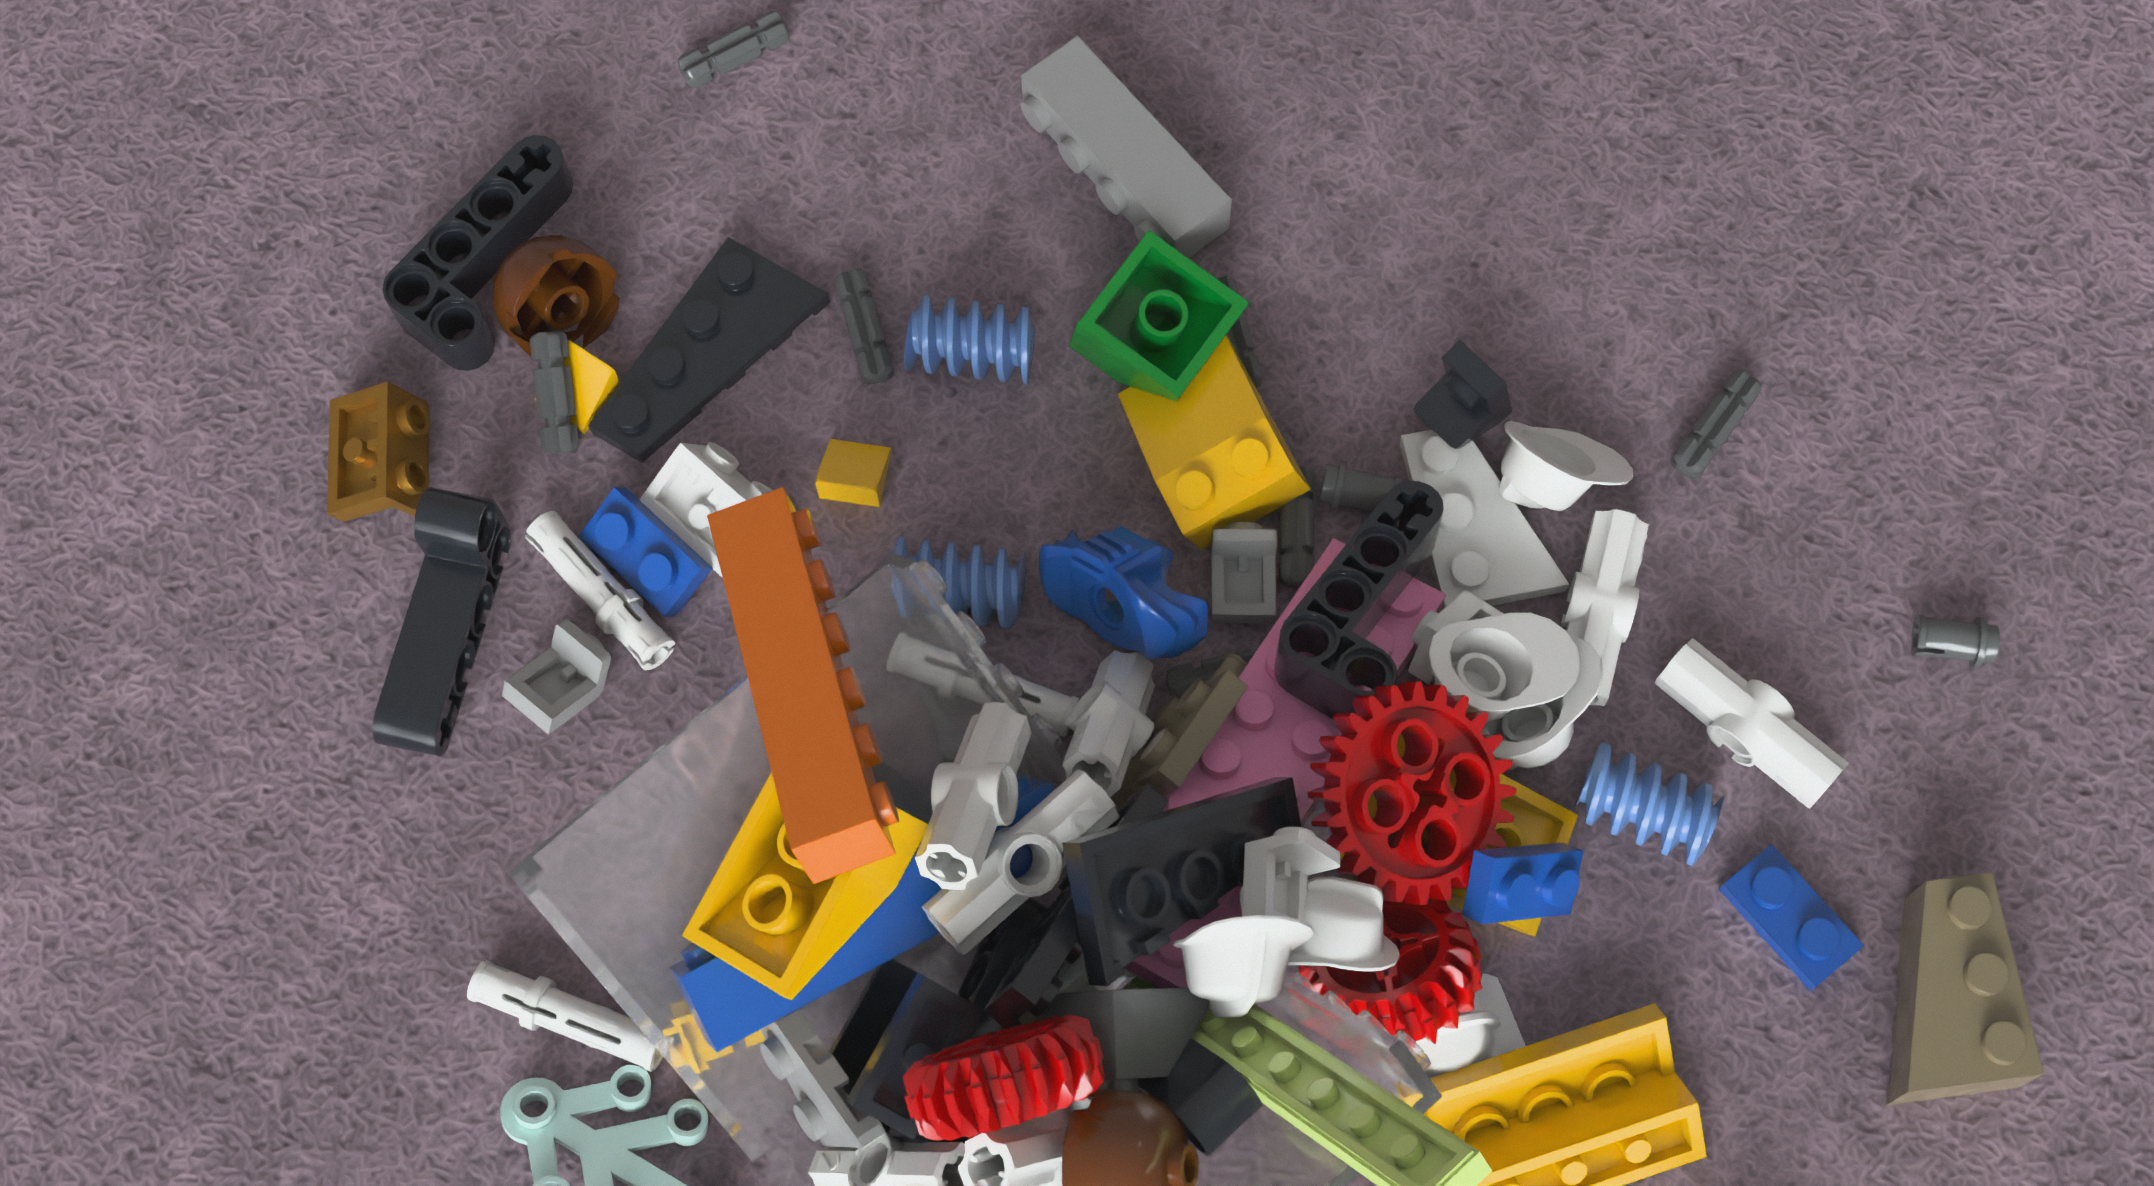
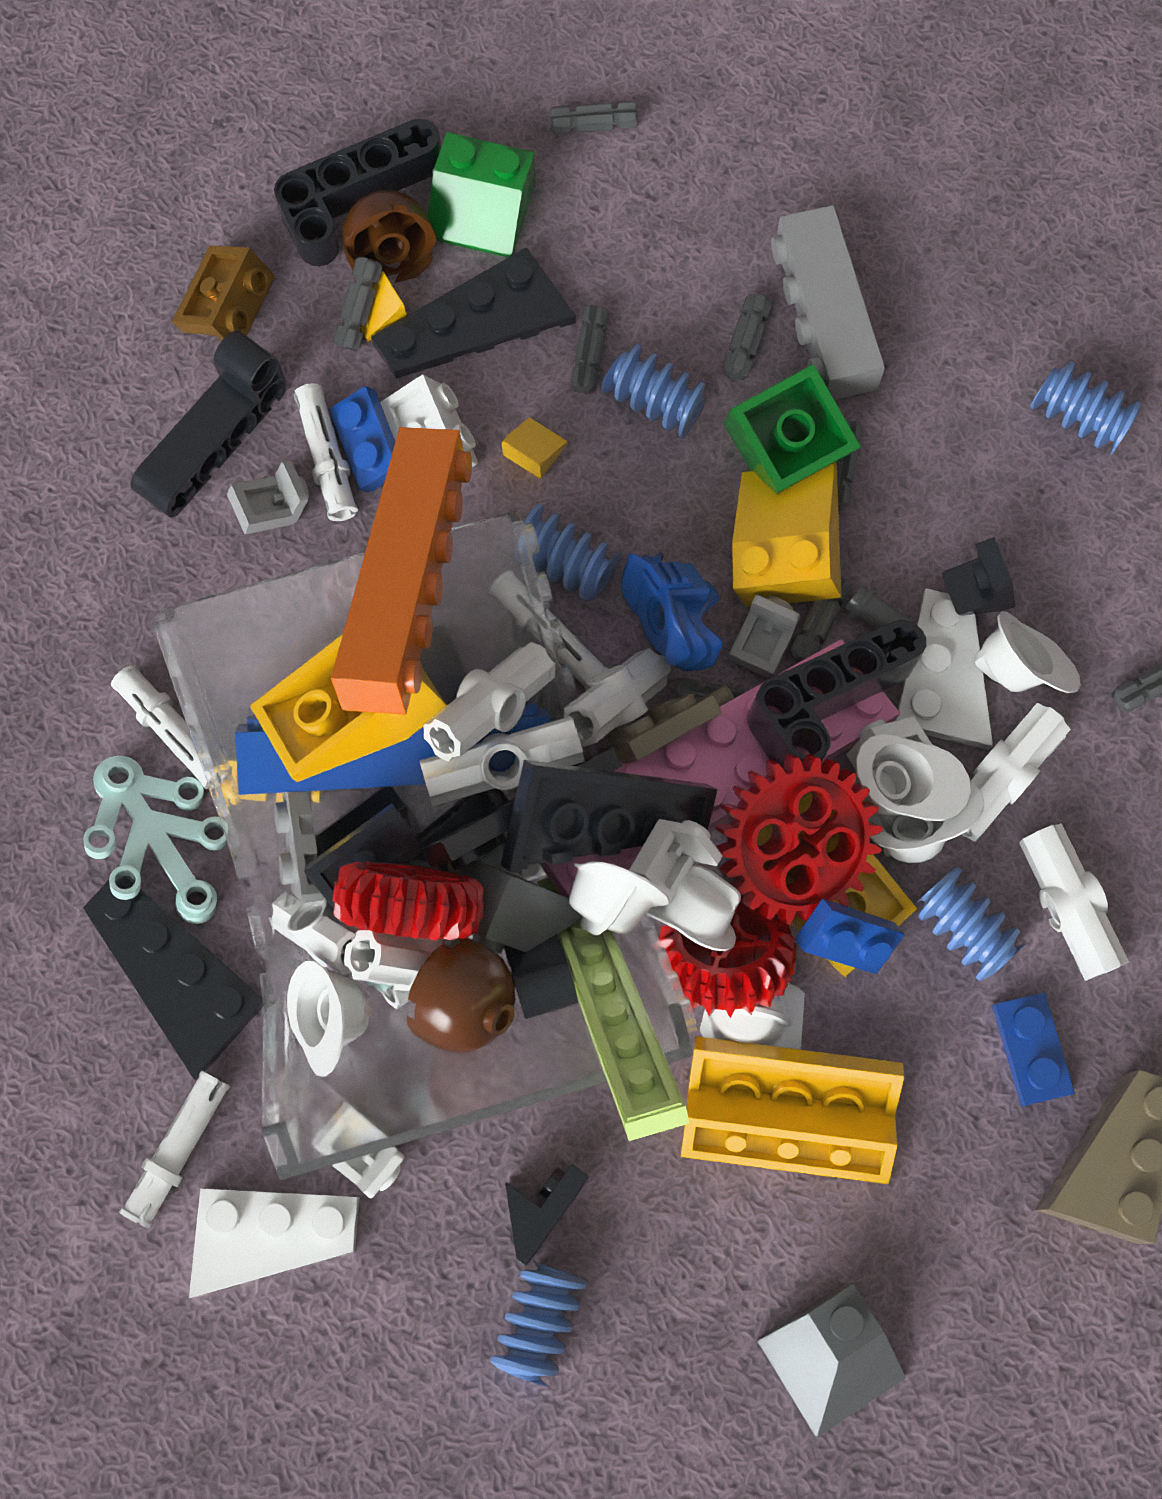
camera: 25 degrees right, 5 degrees up
(642, 197) = (481, 194): none -> green slope
(1045, 231) = (746, 336): none -> dark grey axle
(1481, 144) = (1086, 406): none -> medium blue piece

